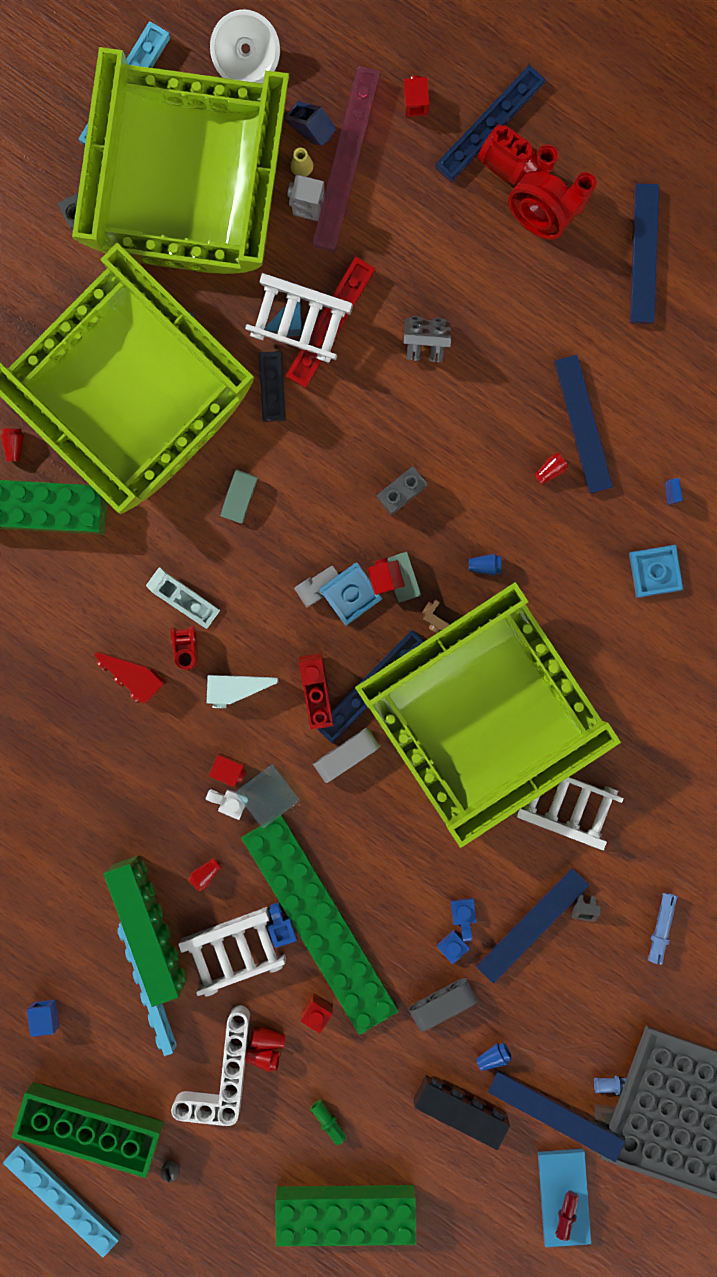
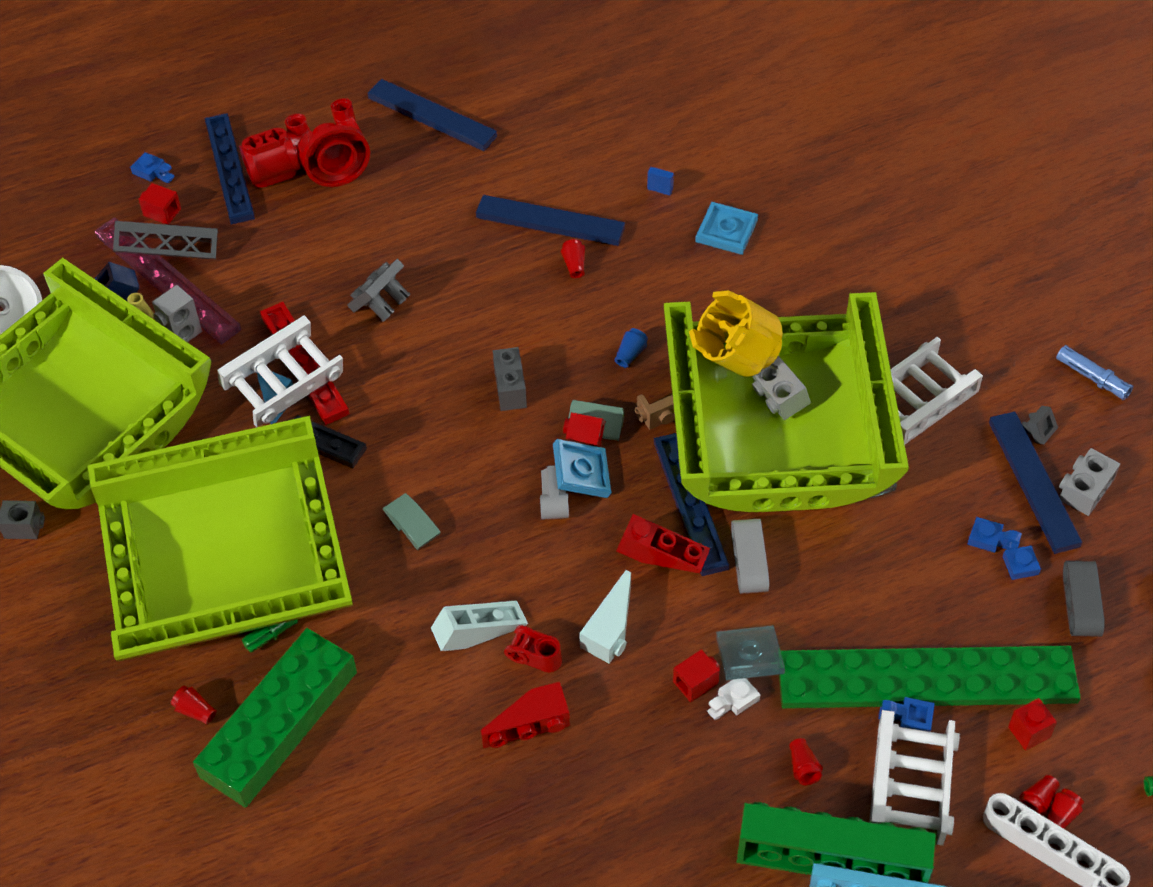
camera: 55 degrees left, 35 degrees down
(384, 125) = (163, 232): none -> dark grey fence
(452, 60) = (150, 166): none -> blue plate
(507, 707) = (781, 389): none -> light grey brick
(521, 668) = (750, 331): none -> yellow piece
(548, 973) = (1088, 481): none -> light grey brick

